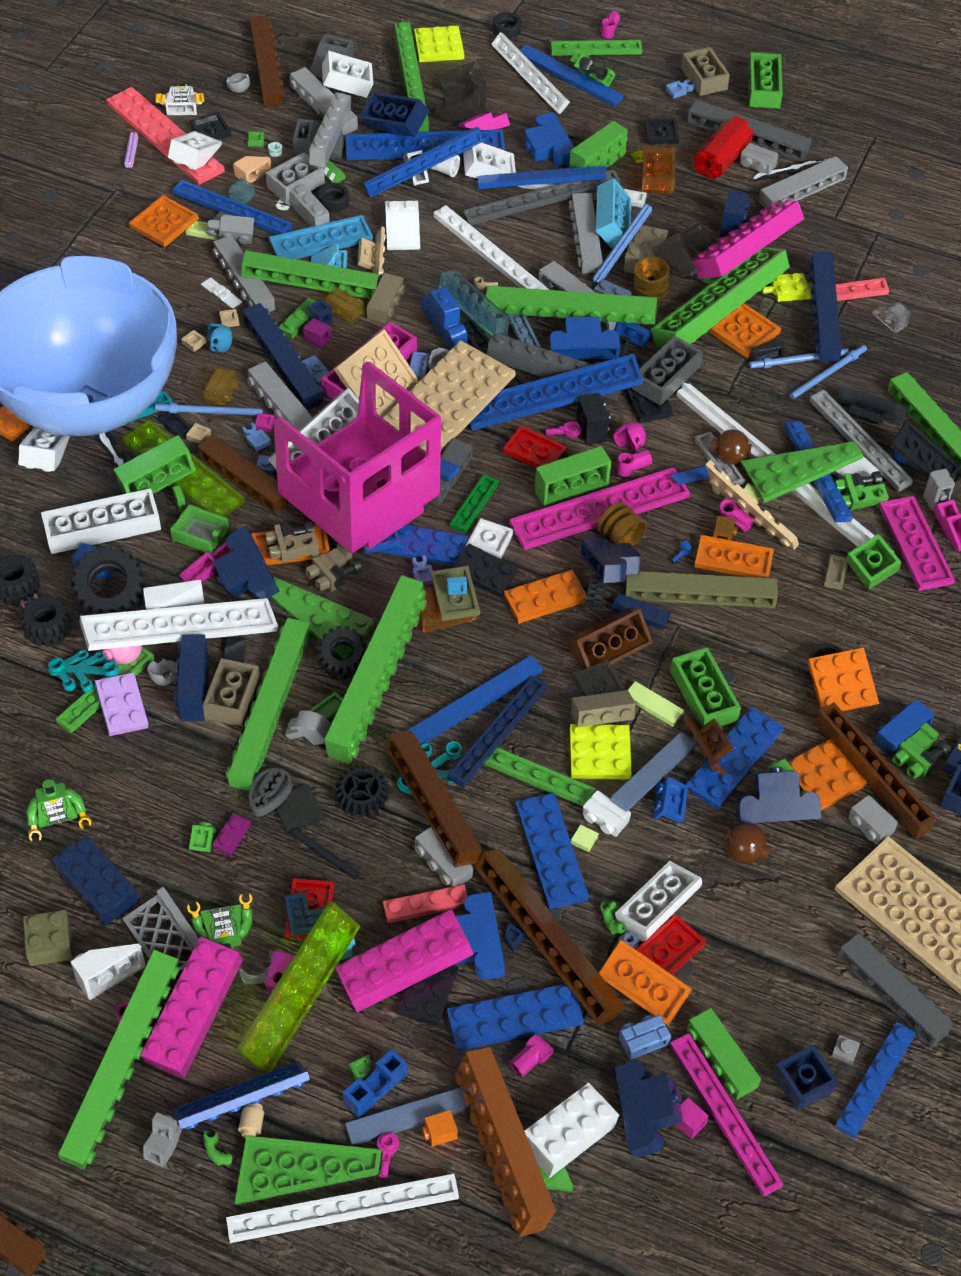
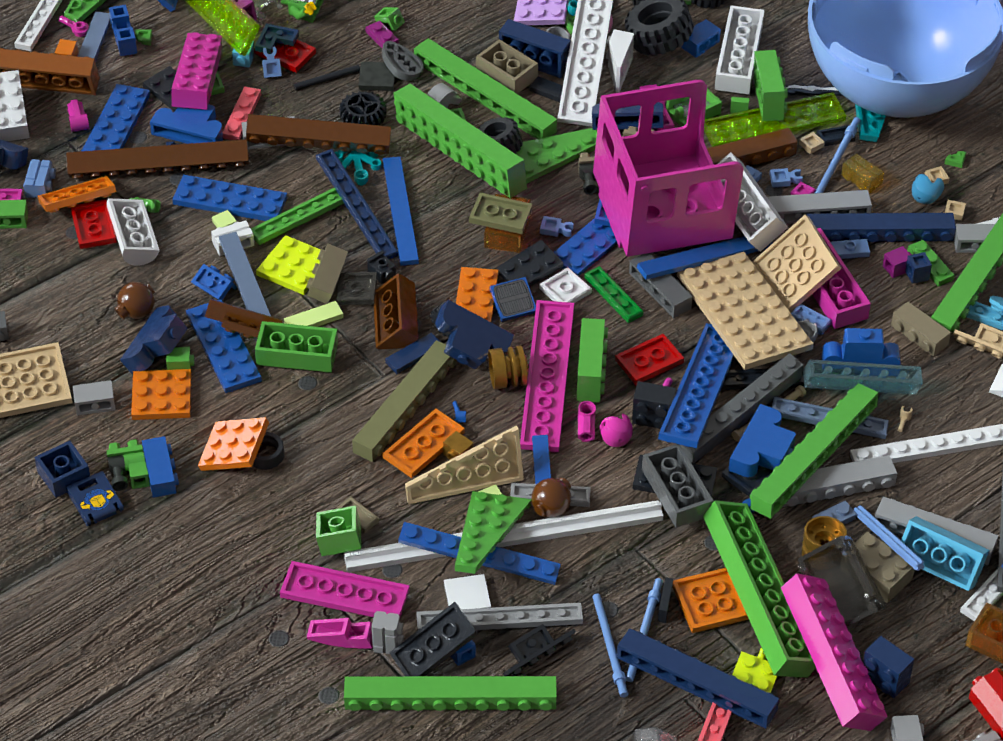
camera: 120 degrees right, 5 degrees down
(345, 305) = (926, 294): clear yellow brick -> none
(345, 904) = (271, 66): none -> medium blue plate
(456, 585) = (499, 204): dark azure tile -> none
(533, 563) = (513, 299): none -> tile
(561, 677) = (382, 265): none -> black brick
(860, 496) = (427, 570): bright green hips -> none
(876, 771) = (134, 417): reddish brown brick -> none

